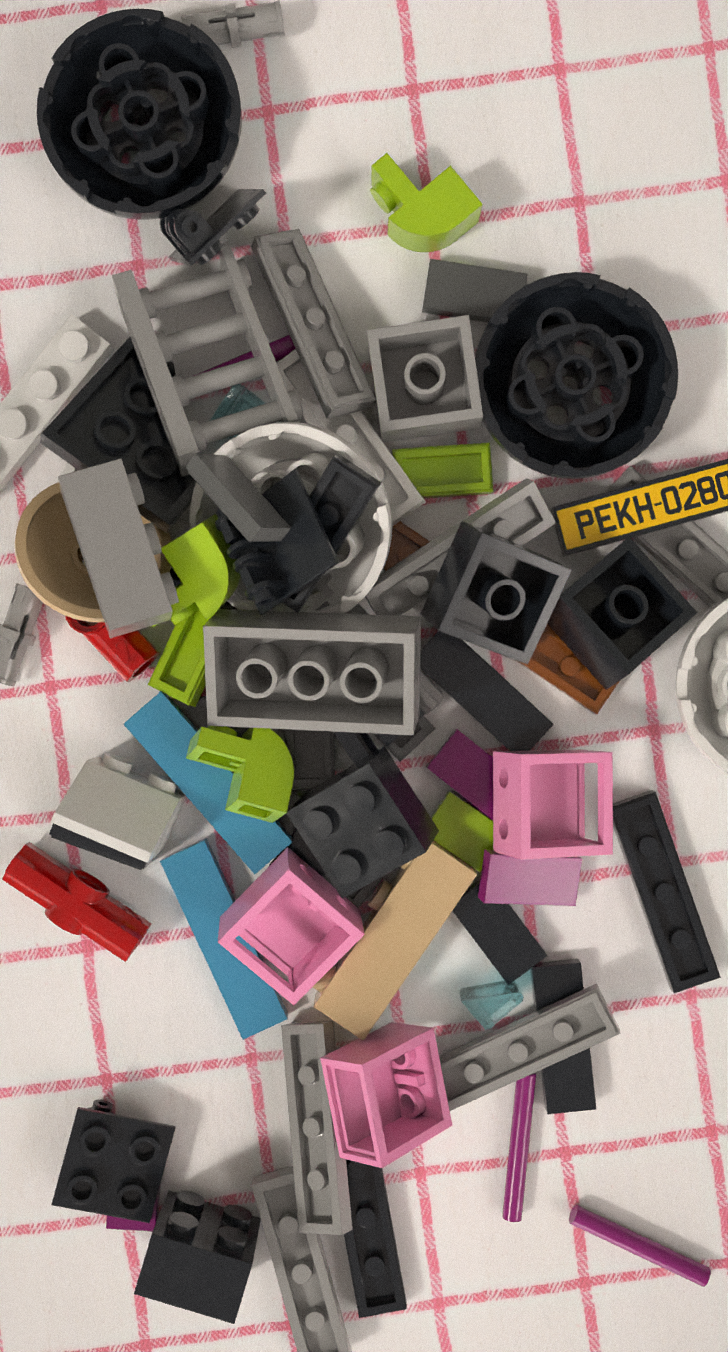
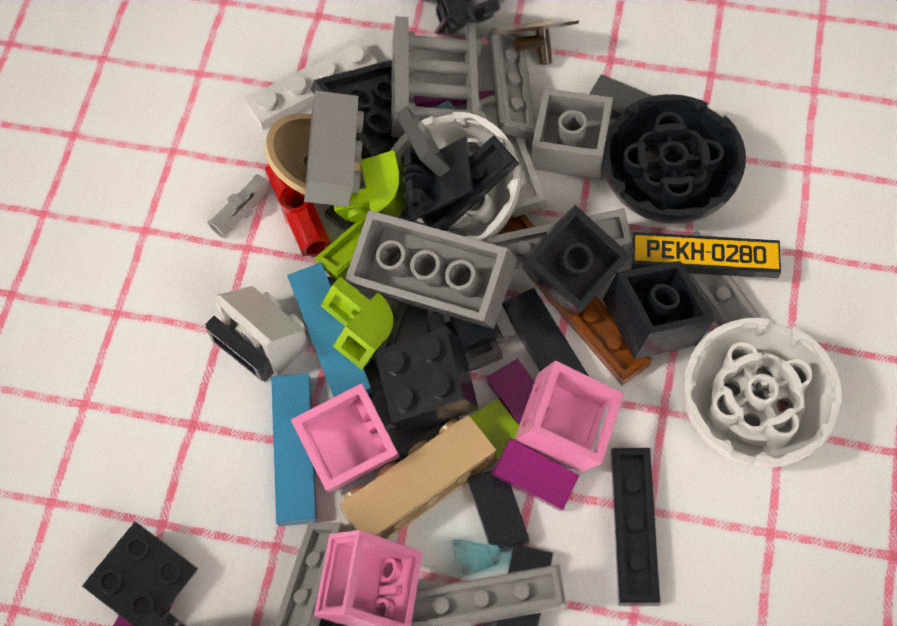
camera: 25 degrees right, 25 degrees down
(76, 901) = (202, 384): red piece -> none
(318, 224) = (540, 40): none -> dark brown shield
(427, 217) = (609, 50): lime brick -> none
(448, 469) = (564, 194): lime tile -> none

